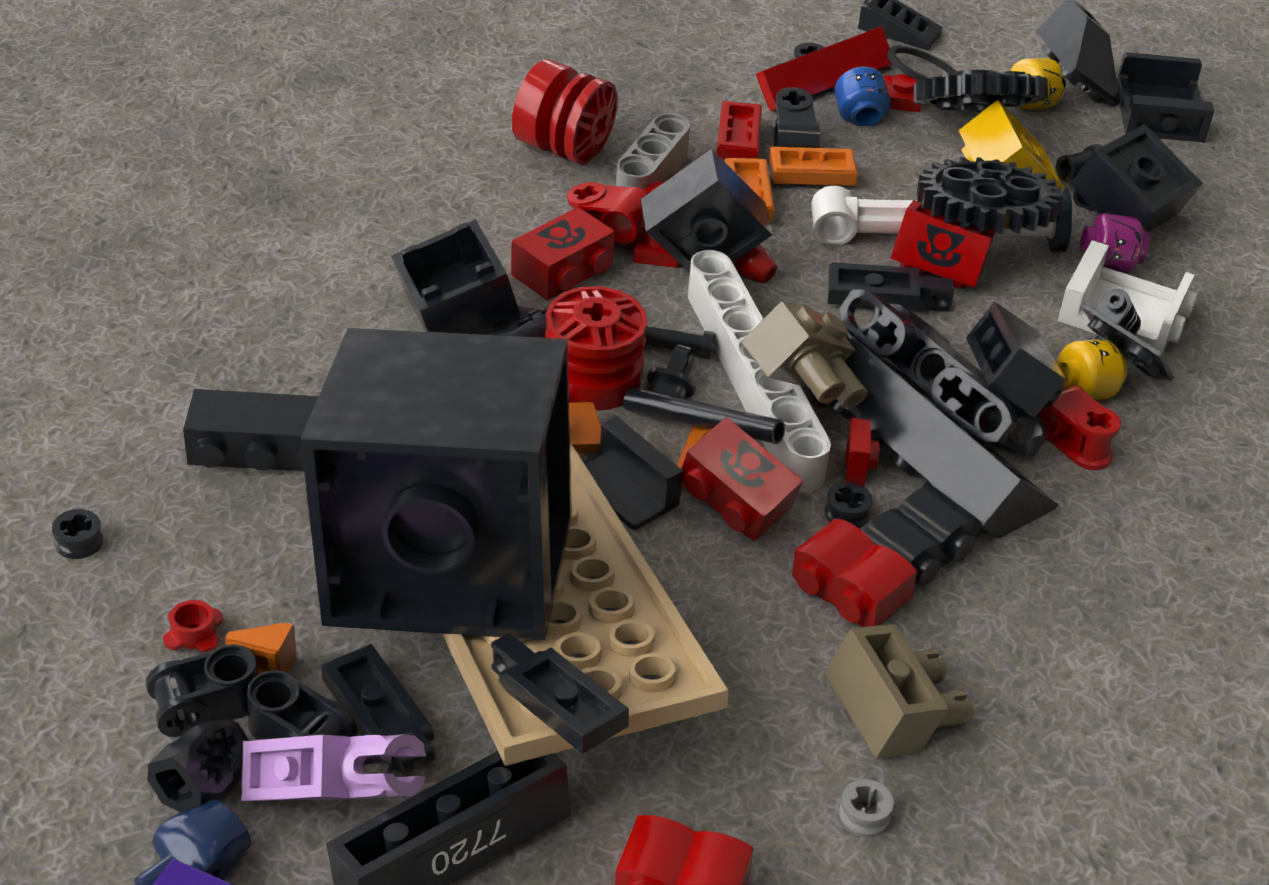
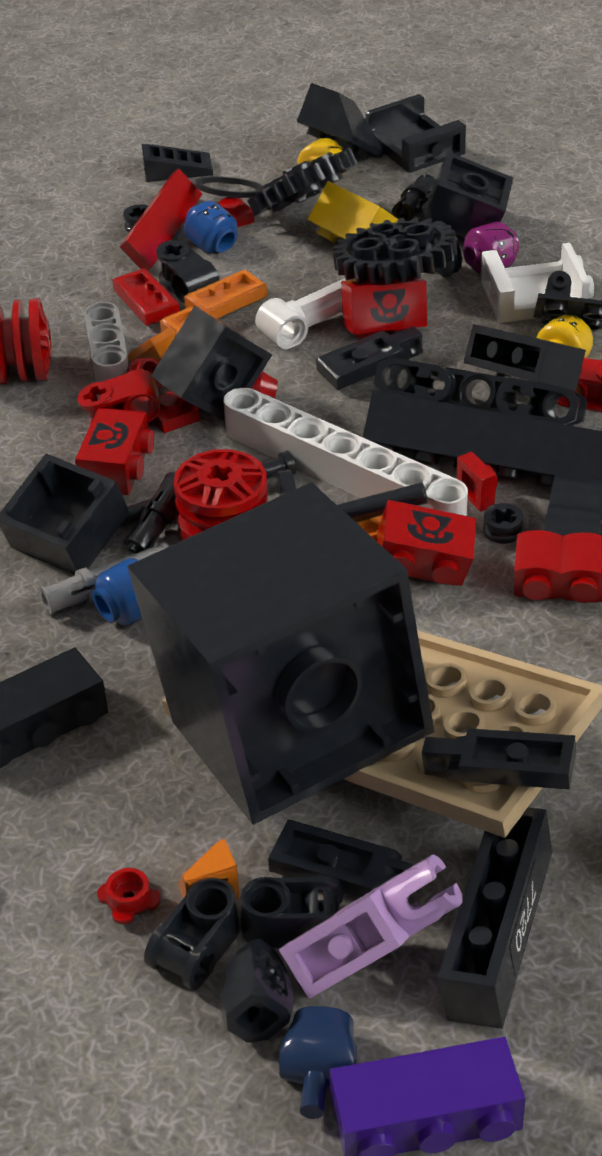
camera: 30 degrees left, 0 degrees up
(807, 351) = (393, 420): dark tan brick -> none

